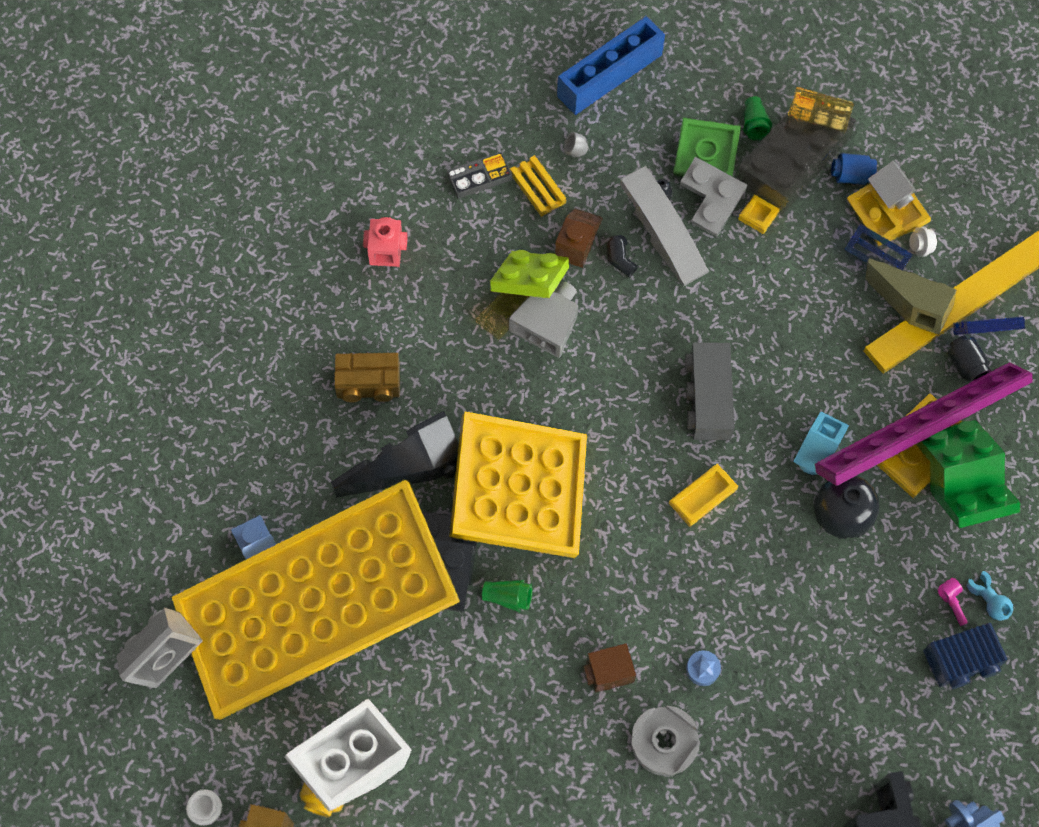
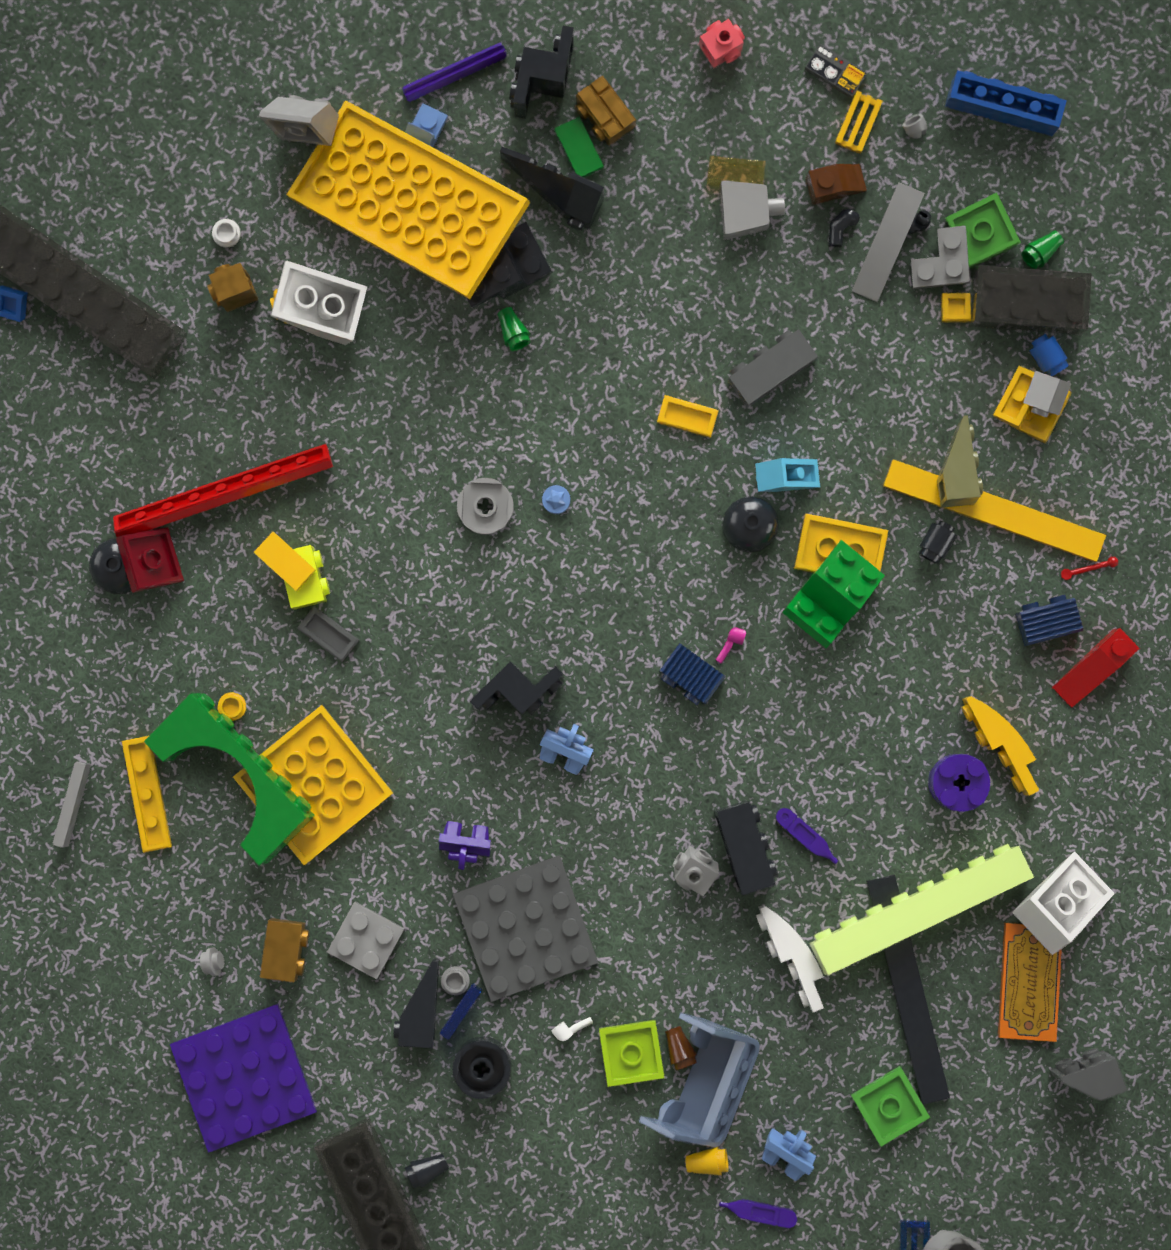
camera: 55 degrees right, 20 degrees up
(225, 483) = (454, 72): none -> dark purple axle
(292, 400) = (542, 72): none -> black bracket
(381, 422) = (579, 148): none -> green tile
(519, 485) = (596, 280): yellow plate -> none
(530, 274) = (770, 170): lime plate -> none
(609, 668) = (508, 435): reddish brown brick -> none
(821, 109) = (1073, 295): clear yellow tile -> none
(856, 239) = (996, 418): clear blue tile -> none
(922, 423) = (853, 539): magenta tile -> none
(923, 241) = (1019, 447): white plate -> none
(991, 325) = (975, 540): clear blue tile -> none
(996, 604) = (749, 673): medium azure arm -> none

